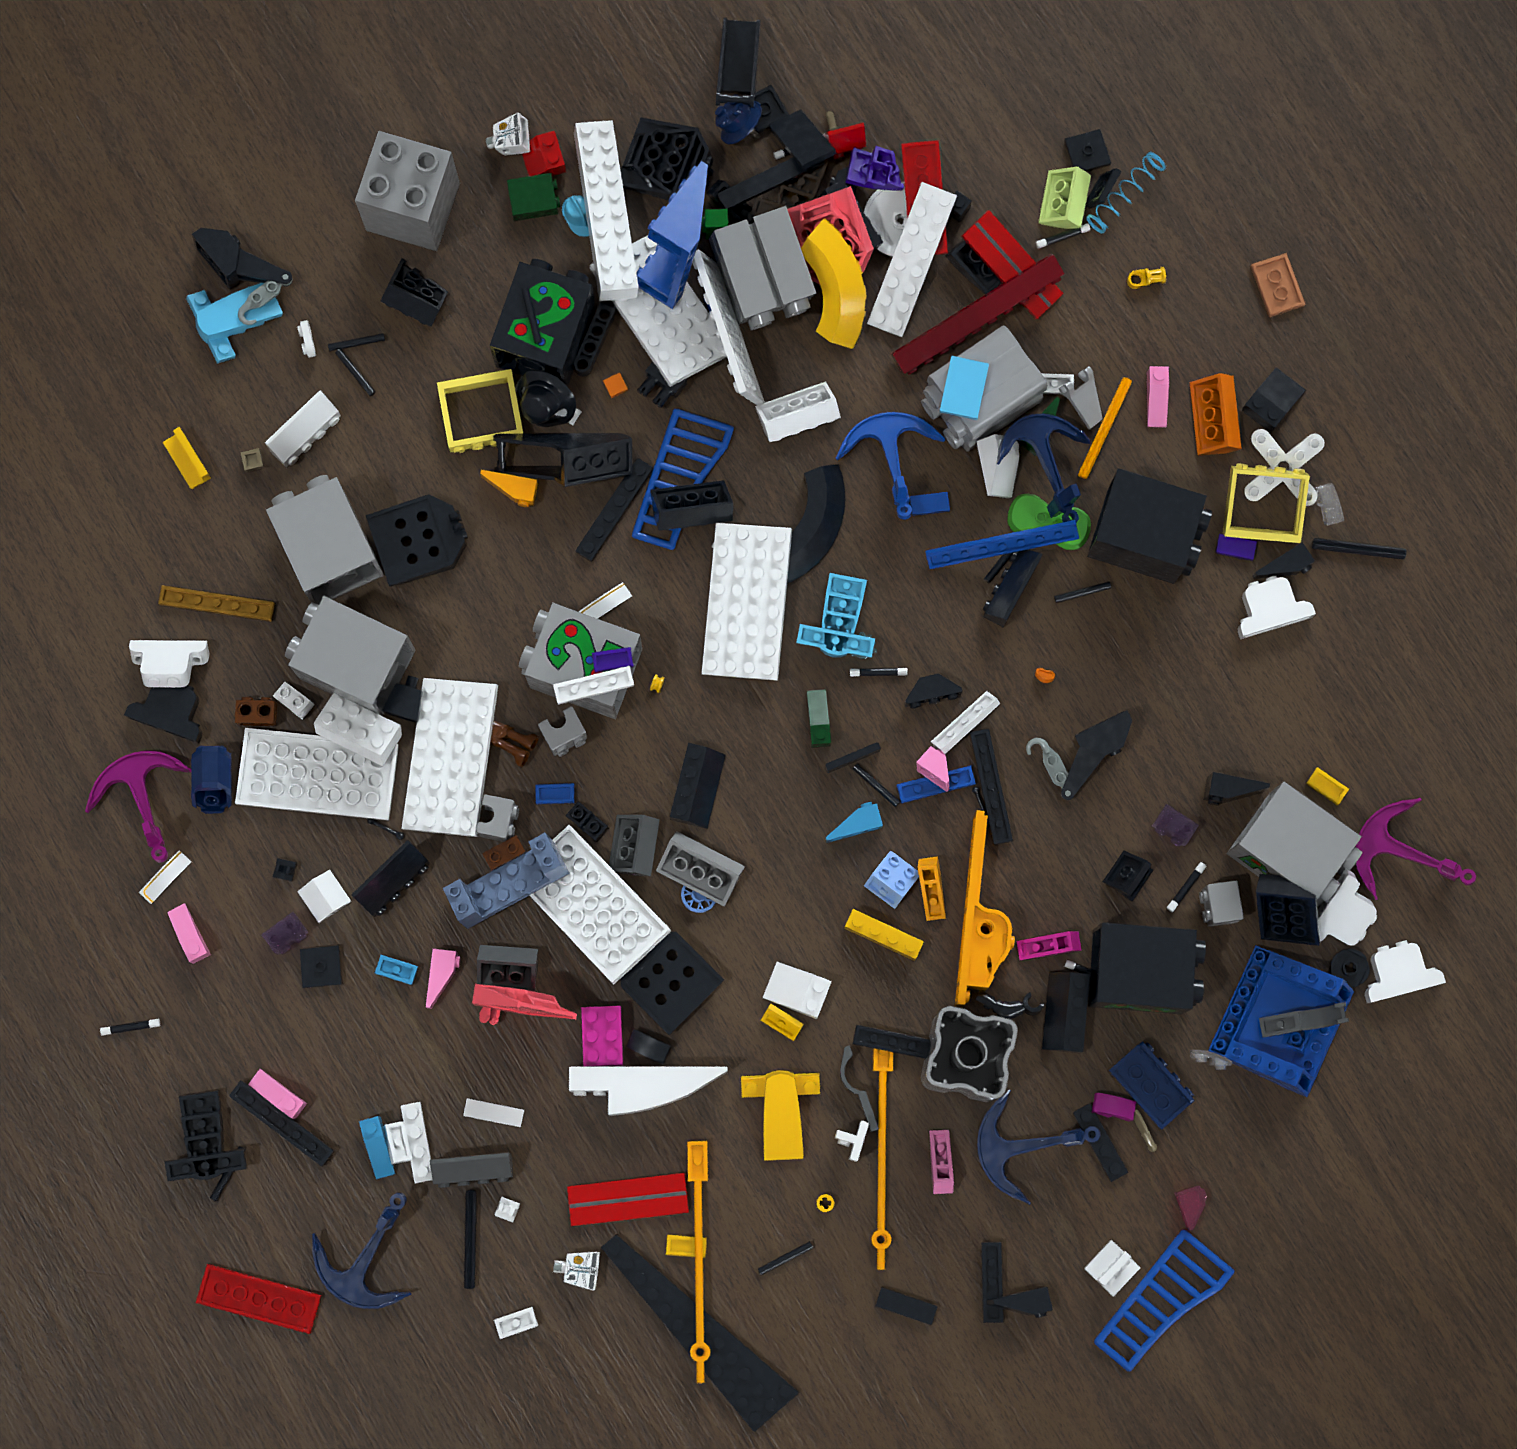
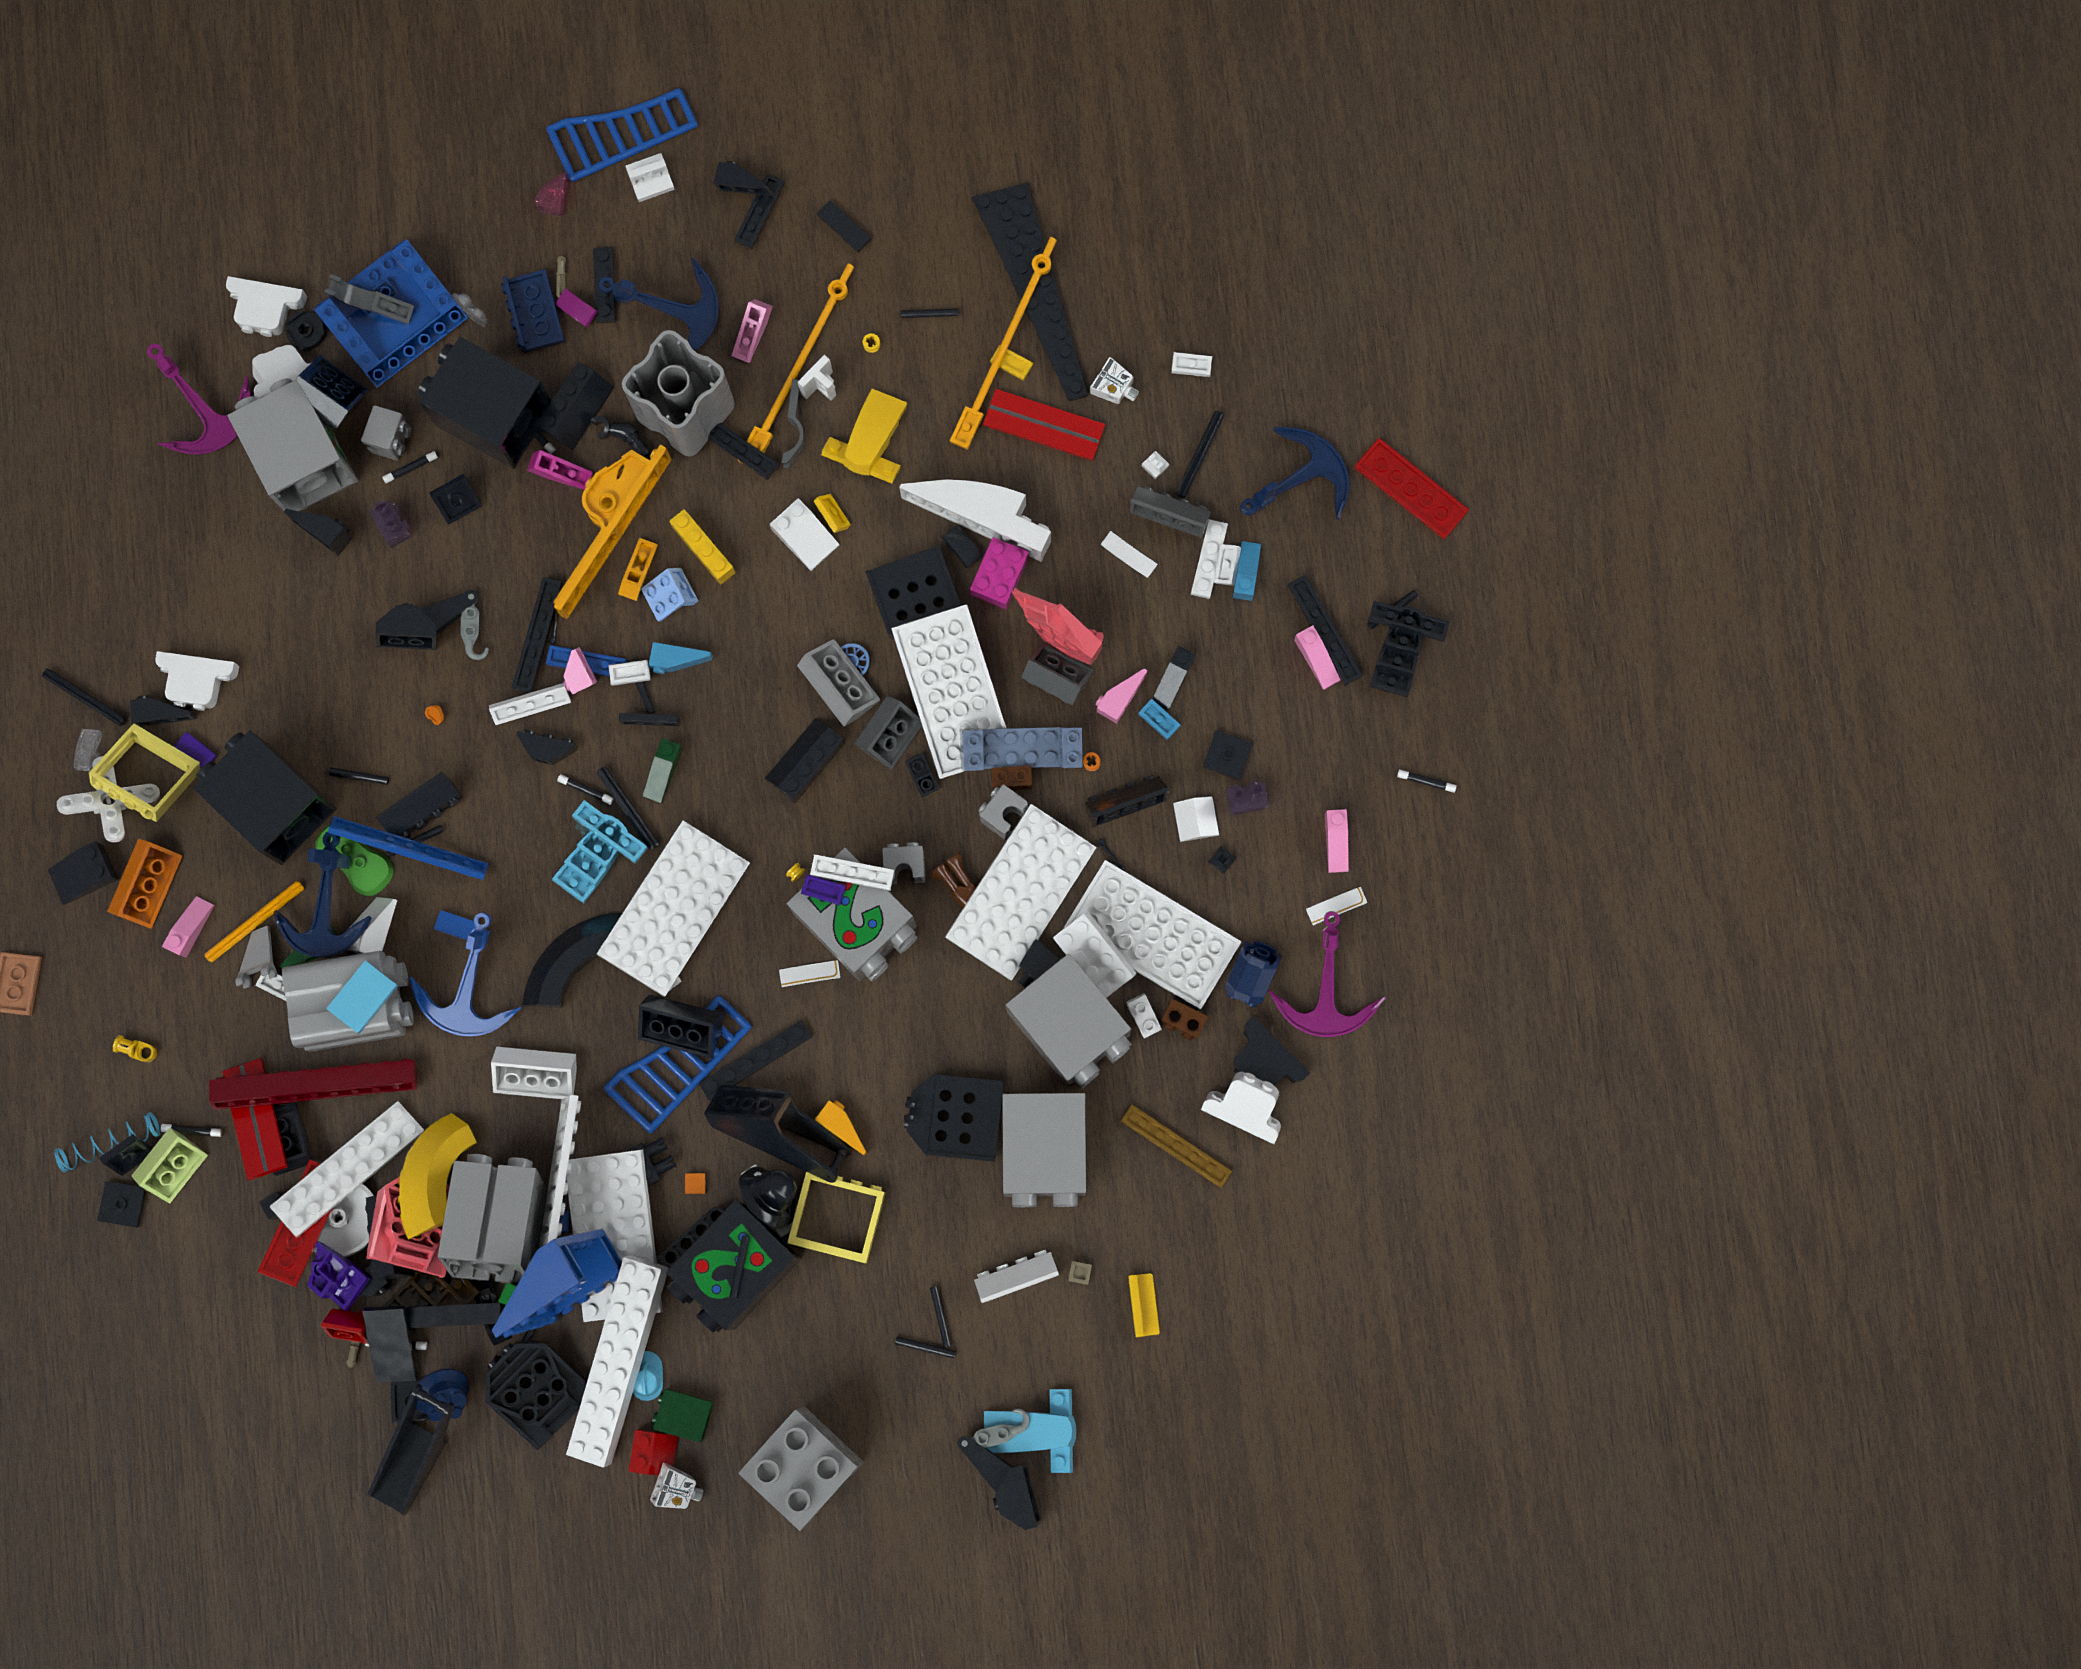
camera: 150 degrees left, 0 degrees up
(308, 345) = (970, 1379): white plate -> none
(400, 1014) = (1174, 677): none -> slope
(414, 294) = (846, 1368): black wedge -> none
(446, 901) = (1097, 761): none -> orange bush
(555, 793) = (939, 815): blue tile -> none
(833, 672) = (628, 808): none -> black axle
(891, 790) = (629, 672): none -> white tile
(1327, 786) = (235, 497): yellow tile -> none

